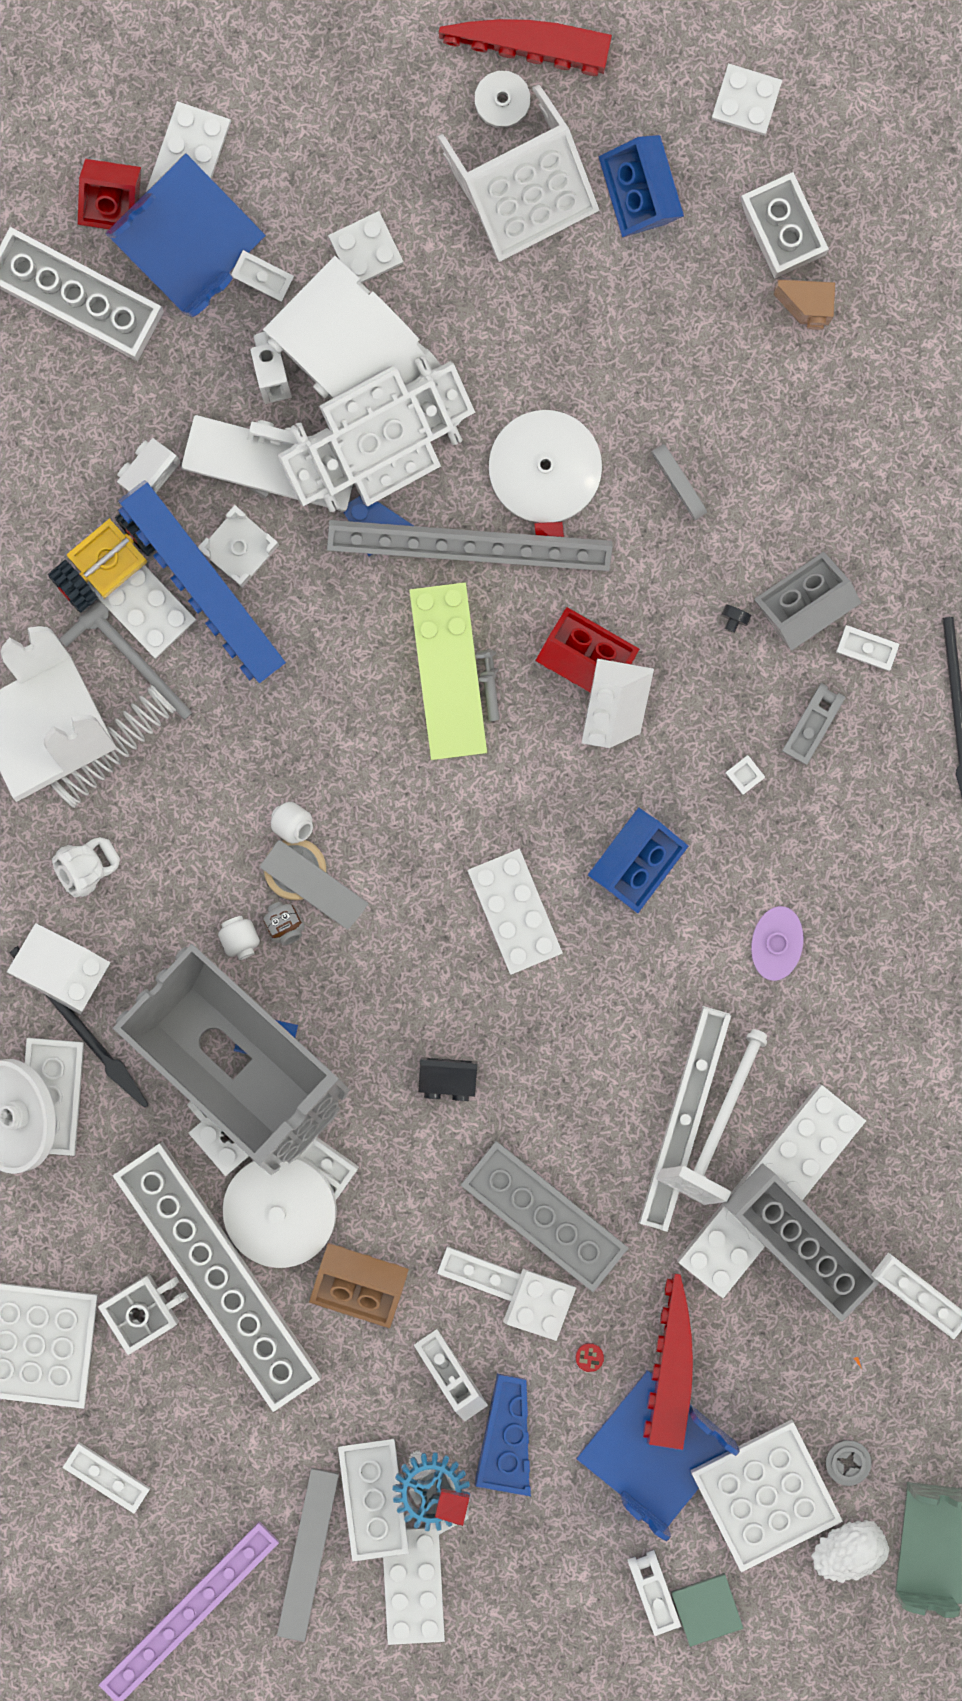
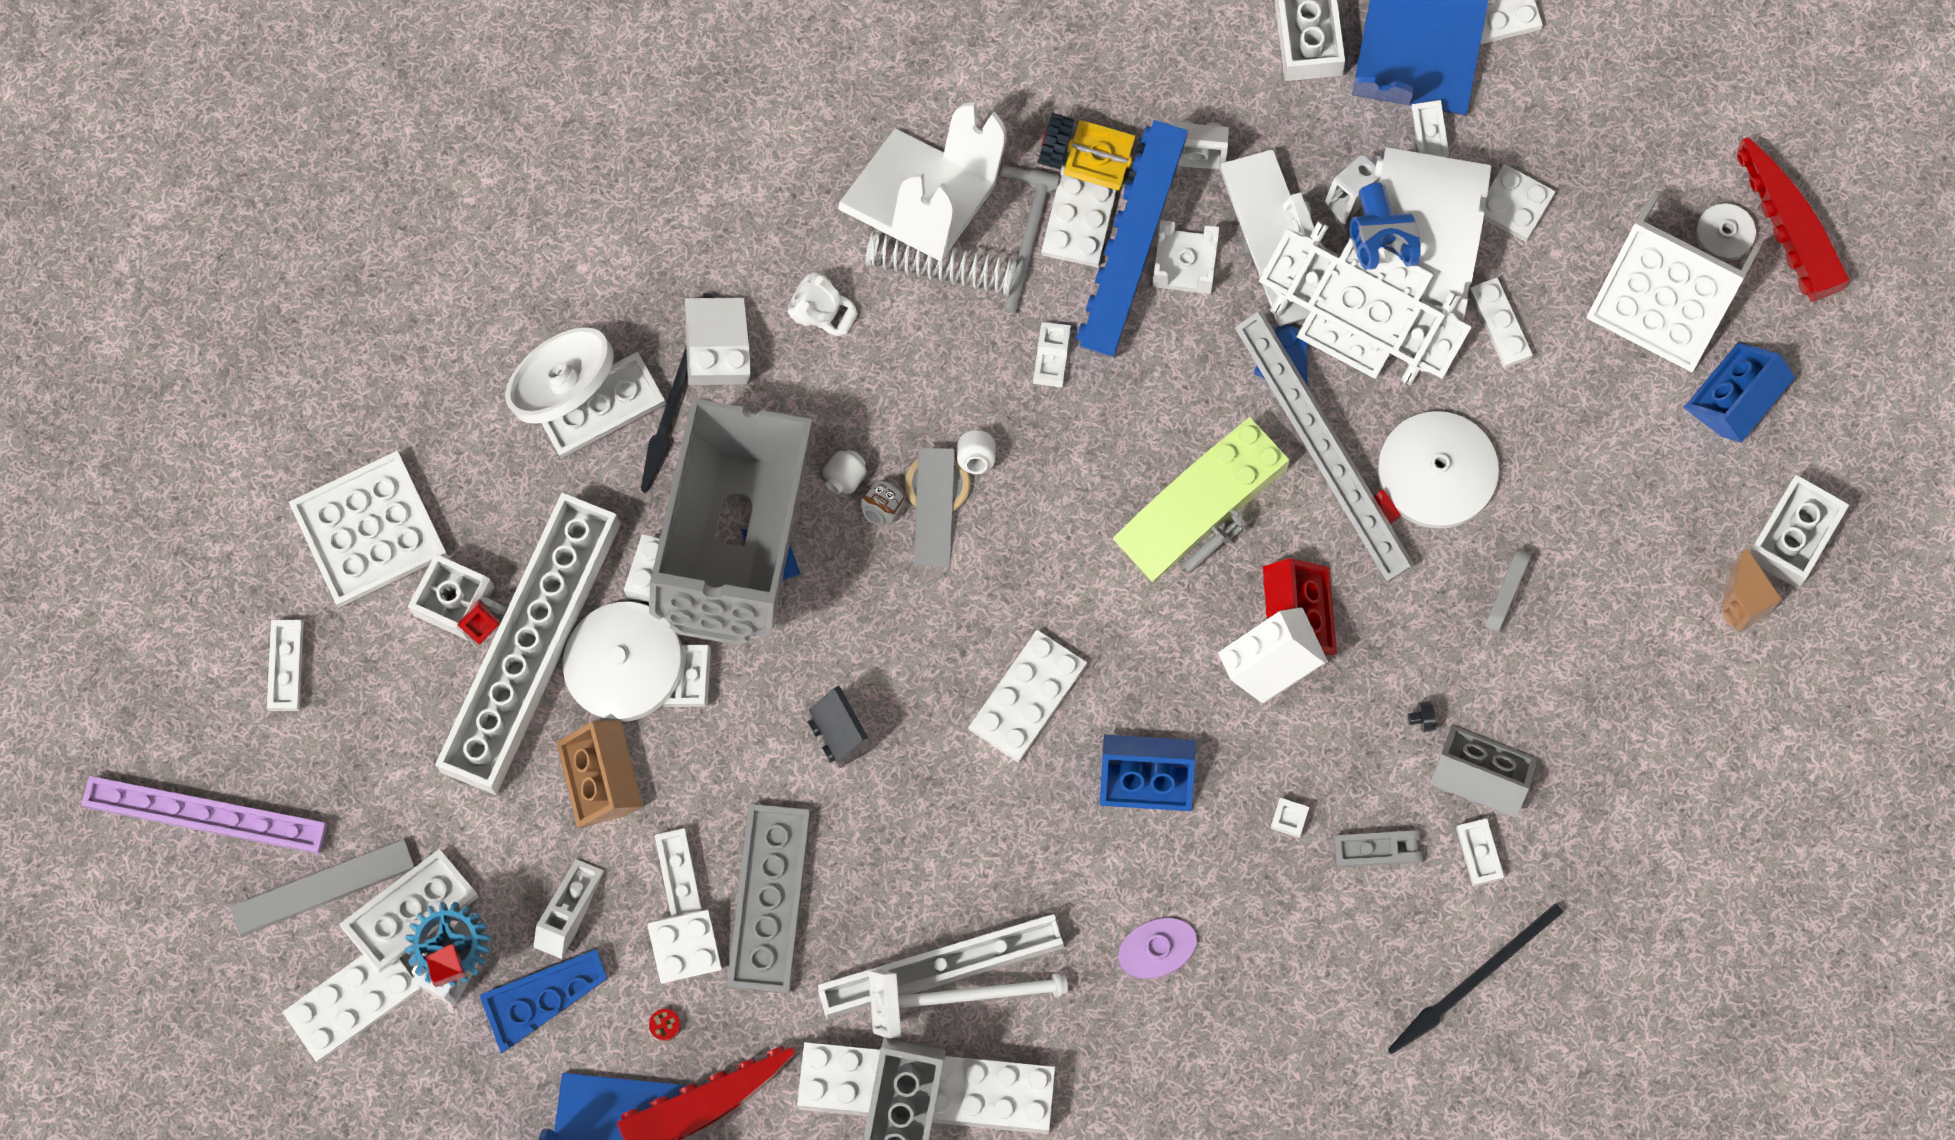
camera: 60 degrees right, 15 degrees down
(177, 1306) = (478, 622): none -> red slope
(247, 707) = (1051, 354): none -> white slope
(336, 384) = (1383, 229): none -> blue connector
(458, 332) = (1500, 322): none -> white plate
(746, 99) = (1880, 434): white plate -> none

